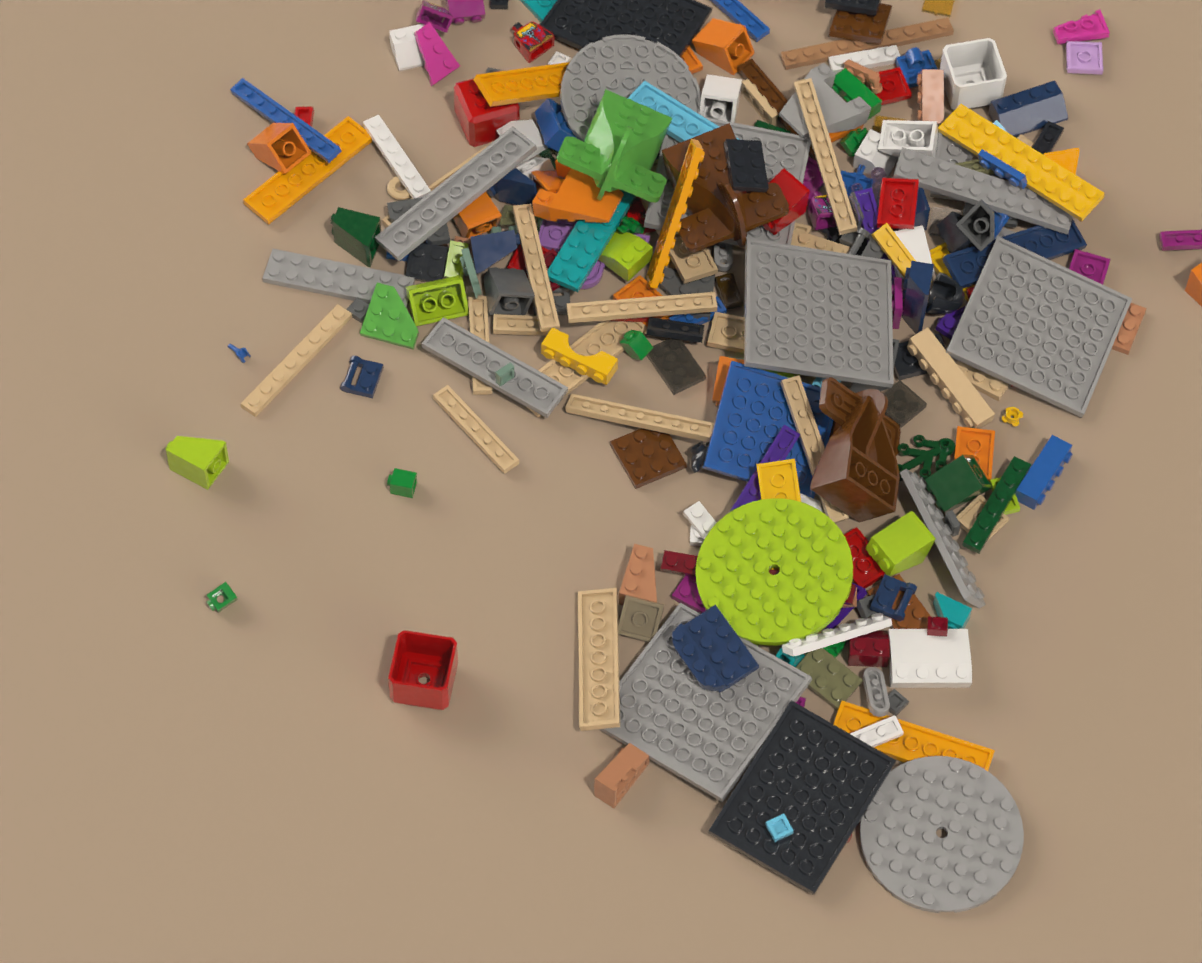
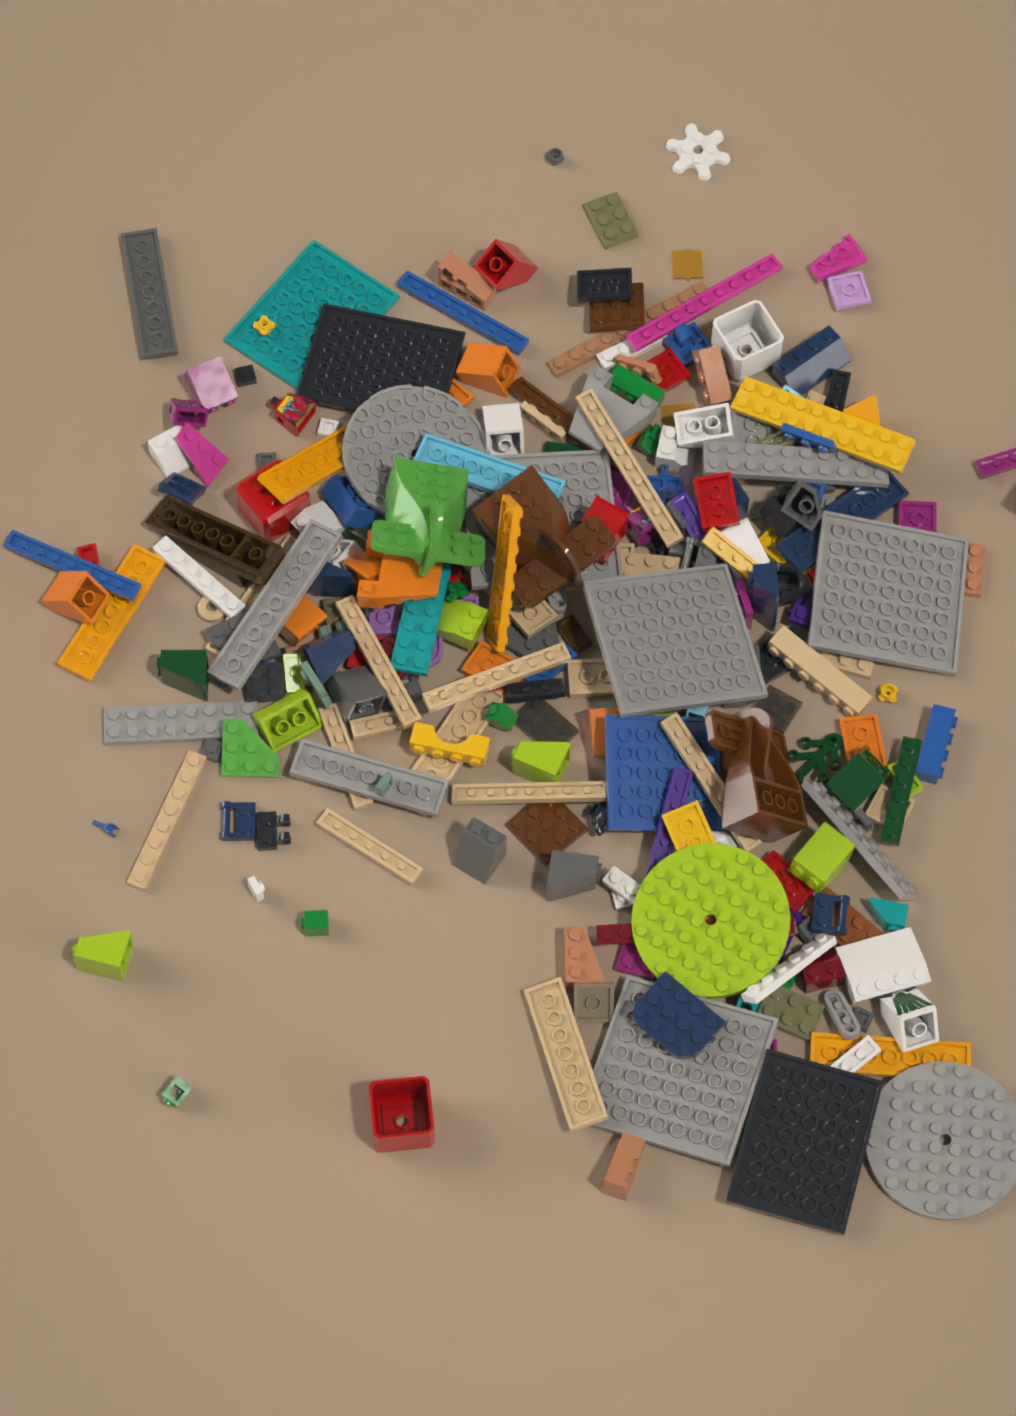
camera: 15 degrees left, 5 degrees up
(358, 438) = (256, 887): none -> white plate
(386, 390) = (267, 830): none -> black plate
(407, 79) = (181, 488): none -> dark blue plate
(422, 131) = (217, 543): none -> dark brown slope
(577, 456) = (480, 850): none -> dark grey slope
(656, 499) = (572, 874): none -> dark grey slope
(661, 391) = (541, 760): none -> lime slope
(746, 165) = (562, 506): black plate -> none
(779, 827) = (793, 1179): medium azure plate -> none
(937, 626) = (881, 932): dark red plate -> none
(941, 712) = (910, 1018): none -> white slope
(943, 35) = (704, 302): none -> dark pink plate

